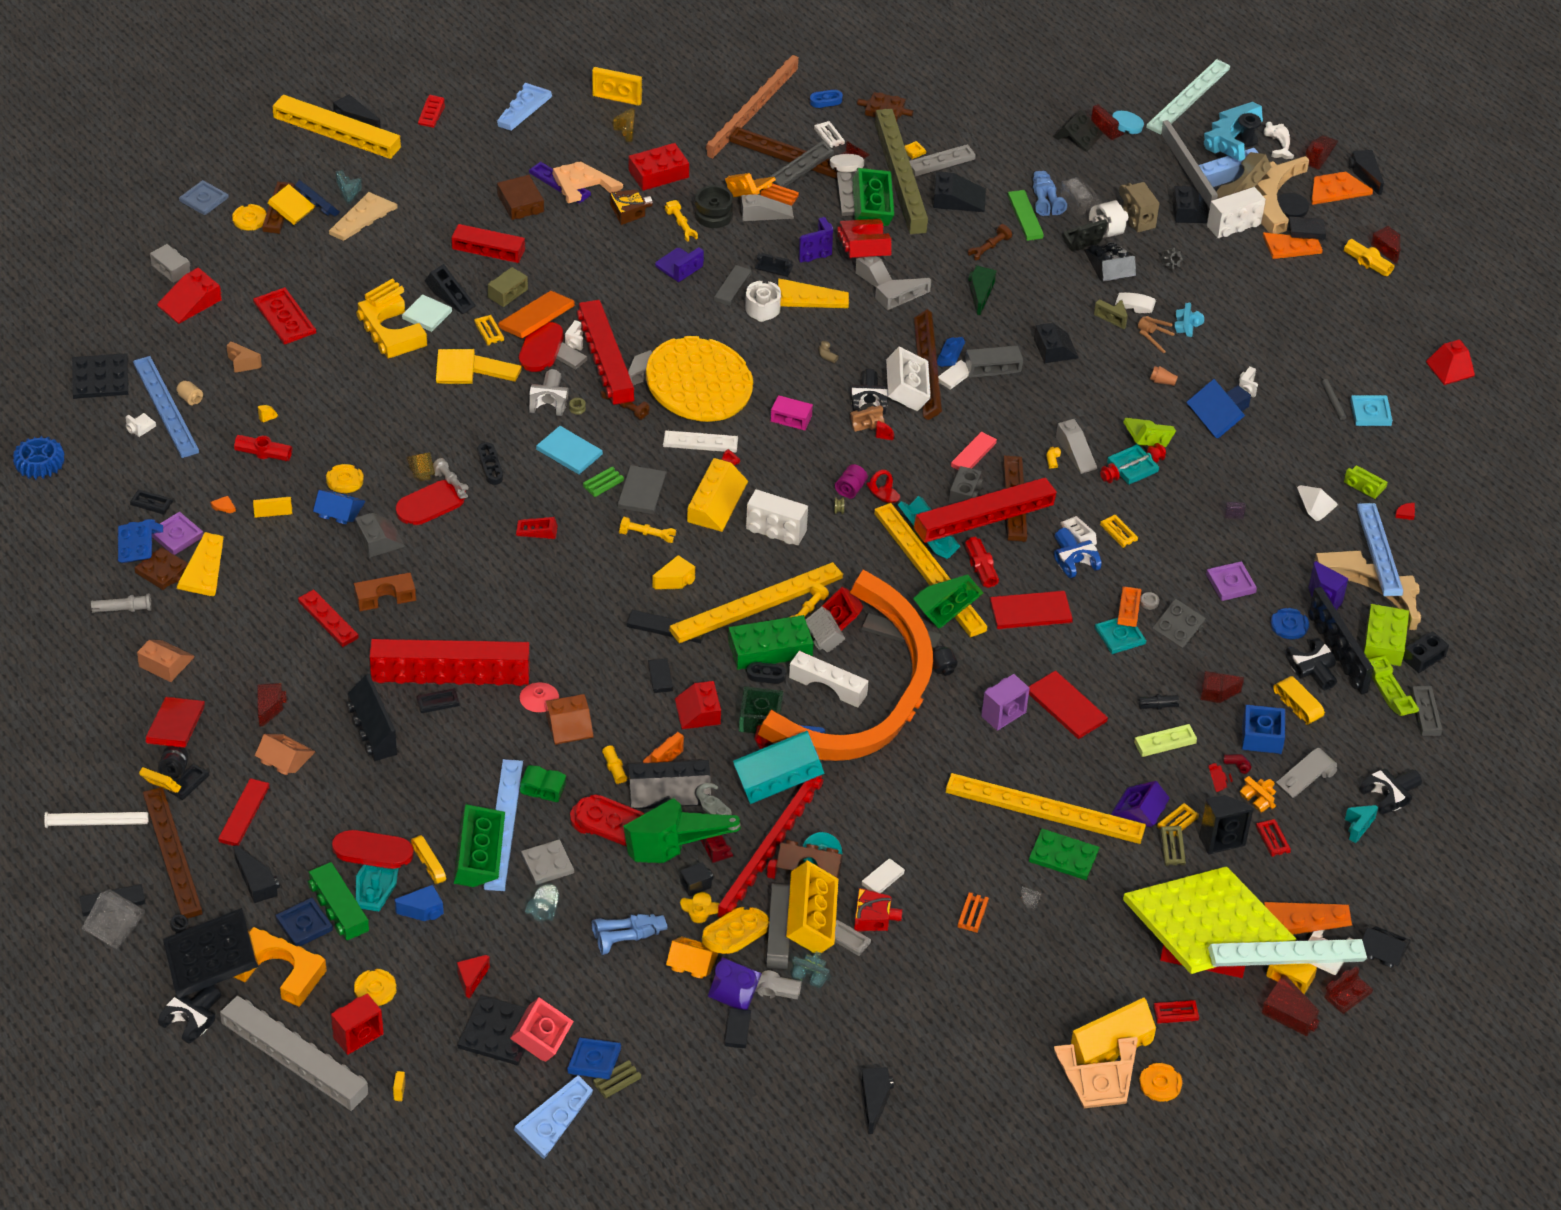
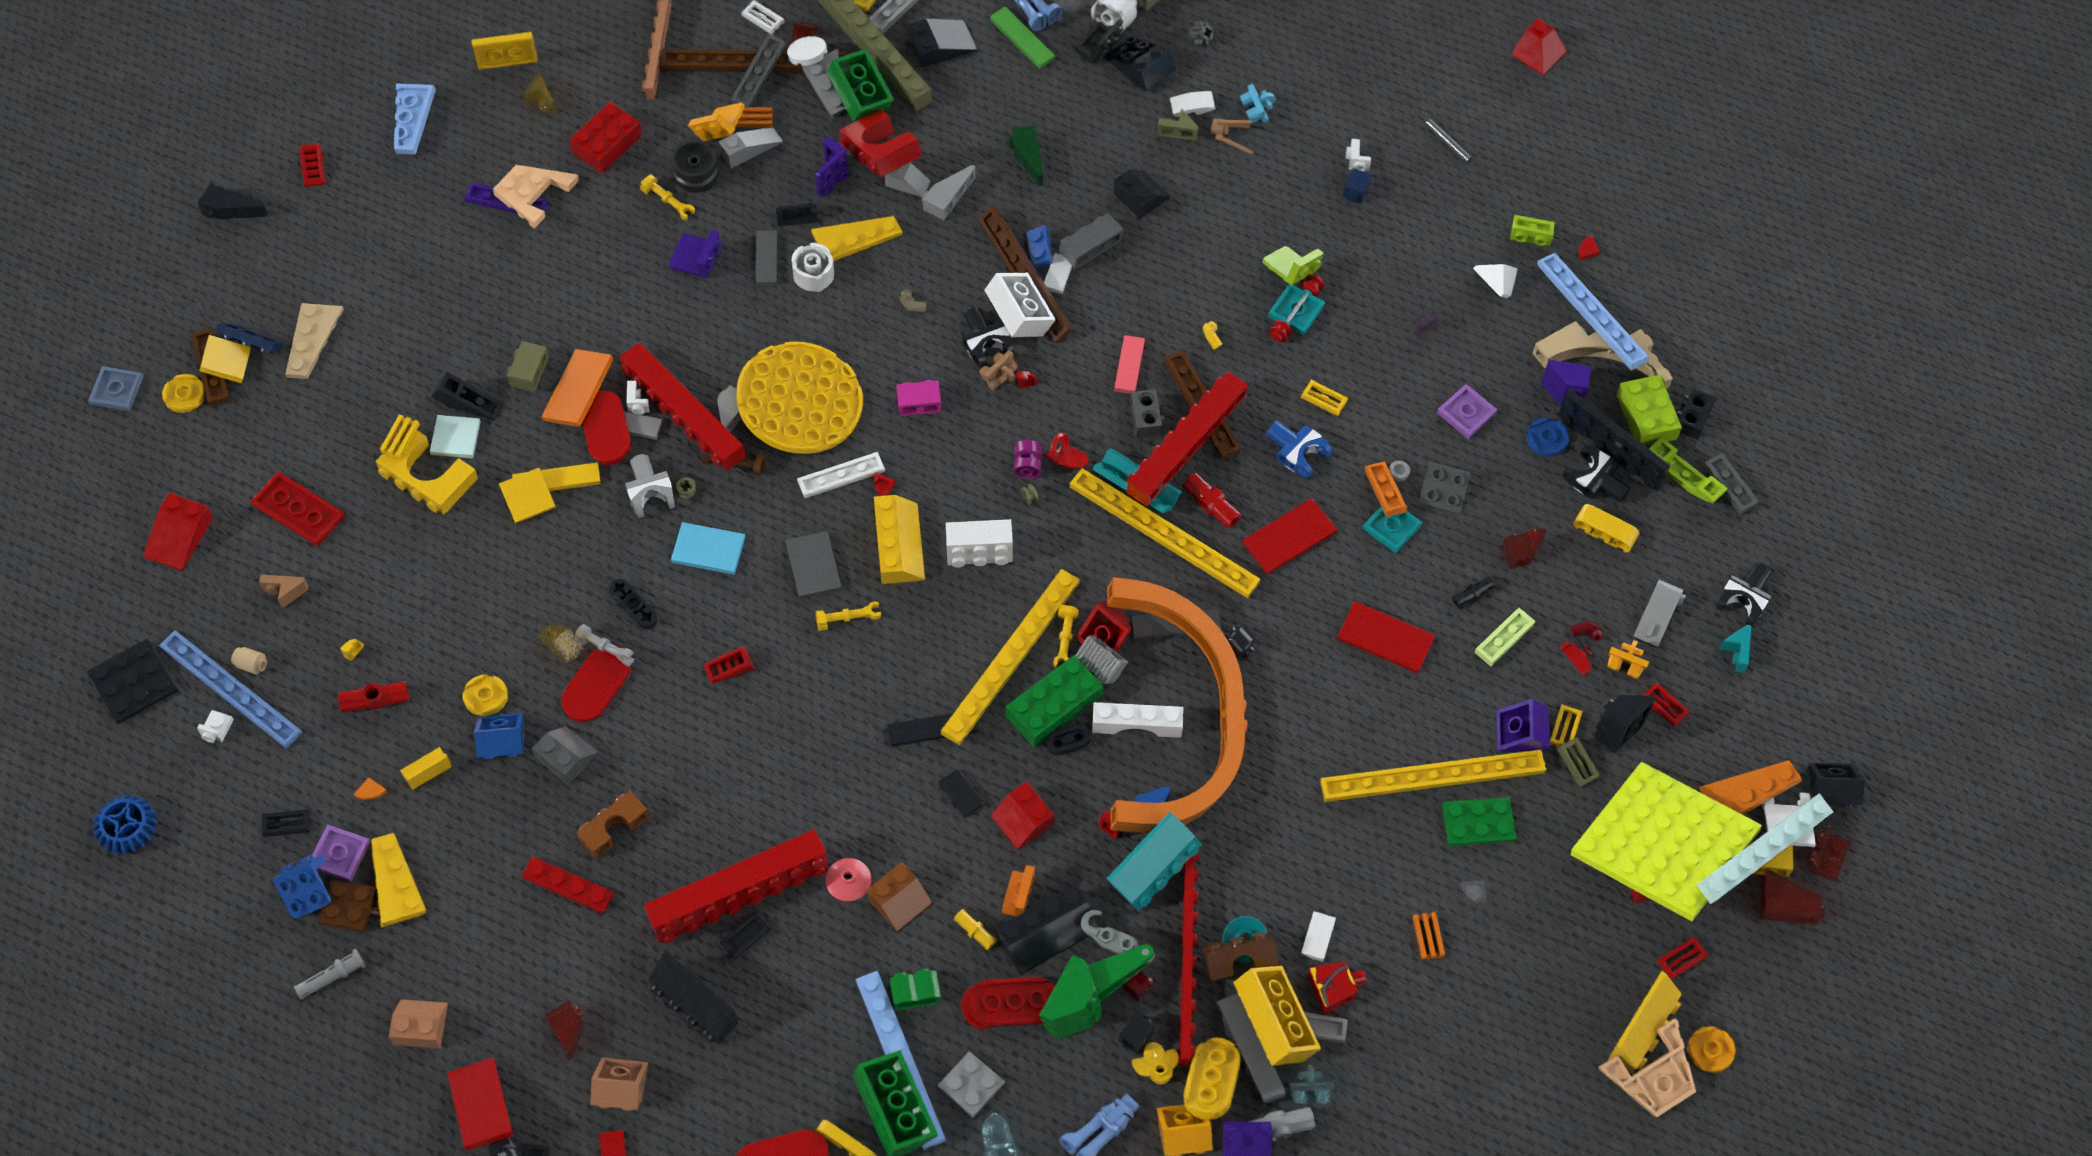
camera: 25 degrees left, 15 degrees up
(170, 263) = (129, 495): light grey brick -> none
(336, 126) = (216, 230): yellow brick -> none
(348, 188) = (277, 309): clear light blue slope -> none
(488, 243) = (473, 316): red brick -> none
(494, 339) = (547, 439): yellow tile -> none
(520, 197) = (476, 240): reddish brown brick -> none
(601, 480) = (774, 558): bright green tile -> none
(629, 205) = (600, 201): reddish brown torso -> none
(674, 575) = (909, 660): yellow slope -> none
(756, 707) = (1090, 792): clear green brick -> none
(772, 869) = (1204, 979): red tile -> none
(947, 599) = (1206, 575): green slope -> none
(1003, 233) = (1013, 71): reddish brown piece -> none
(1005, 702) = (1330, 667): medium lavender brick -> none
(1075, 445) = (1229, 312): light grey slope -> none
(1084, 529) = (1300, 418): white slope -> none
(1162, 376) = (1267, 185): nougat cone -> none
(1215, 408) = (1344, 205): blue tile -> none
(1263, 729) = (1594, 581): blue brick -> none
(1371, 410) = (1492, 139): medium azure plate -> none

